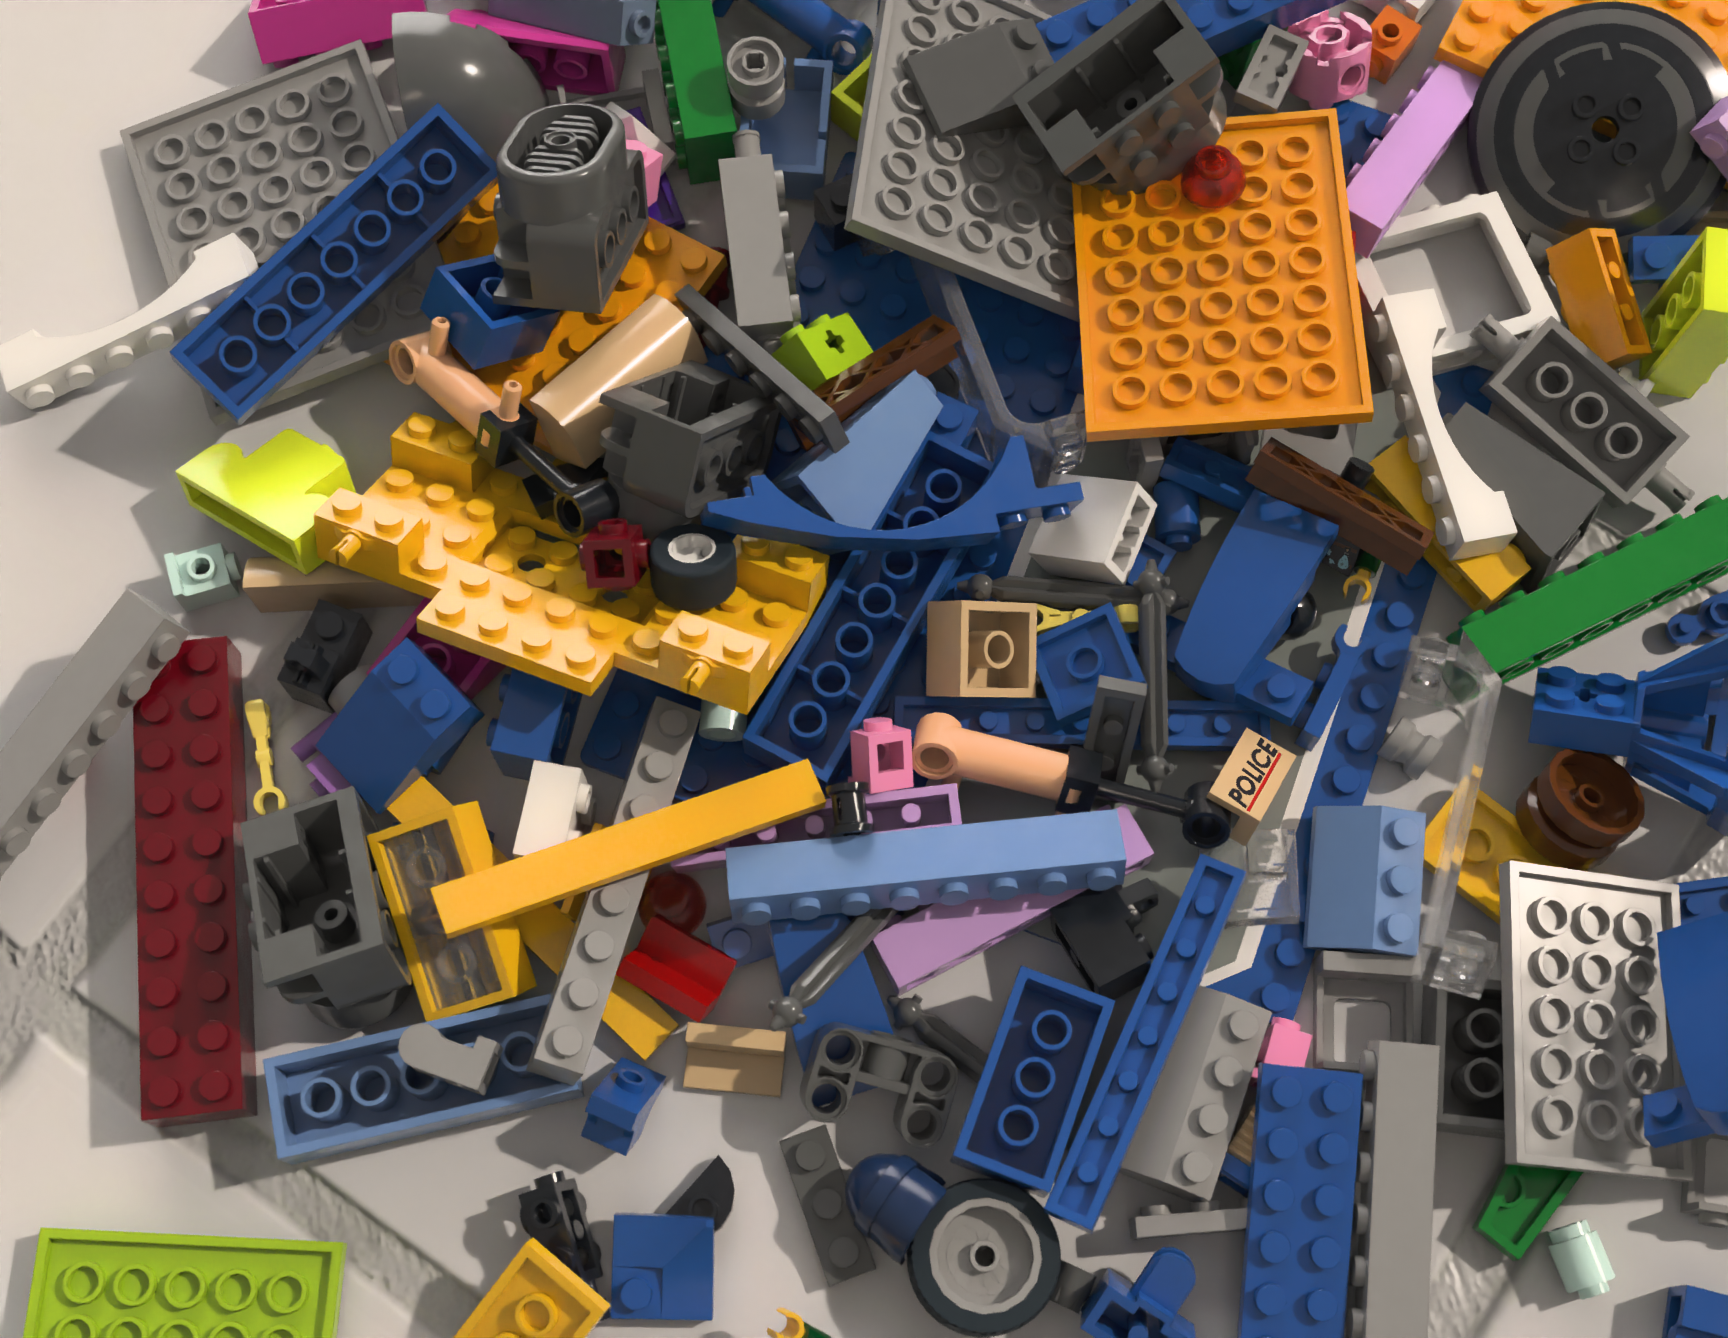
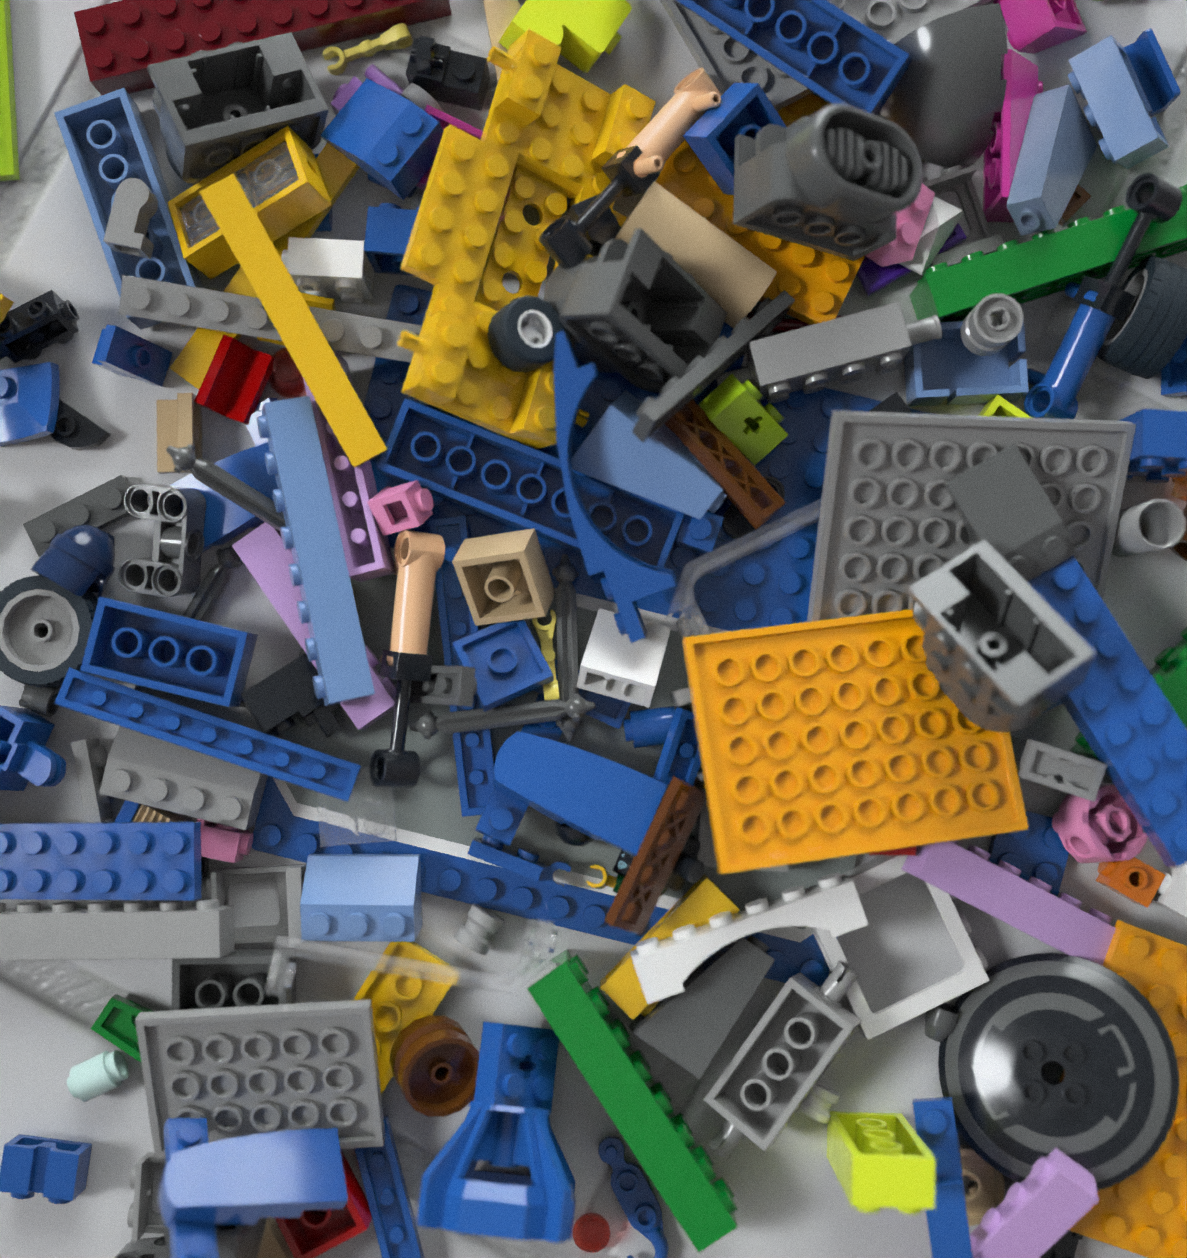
camera: 90 degrees right, 15 degrees up
(605, 566) = (521, 268): dark red brick -> none
(849, 809) = (347, 485): black bush -> none
(1213, 178) = (942, 726): clear red piece -> none
(1250, 781) = (424, 800): tan panel -> none
(1599, 296) = (894, 1073): light orange brick -> none

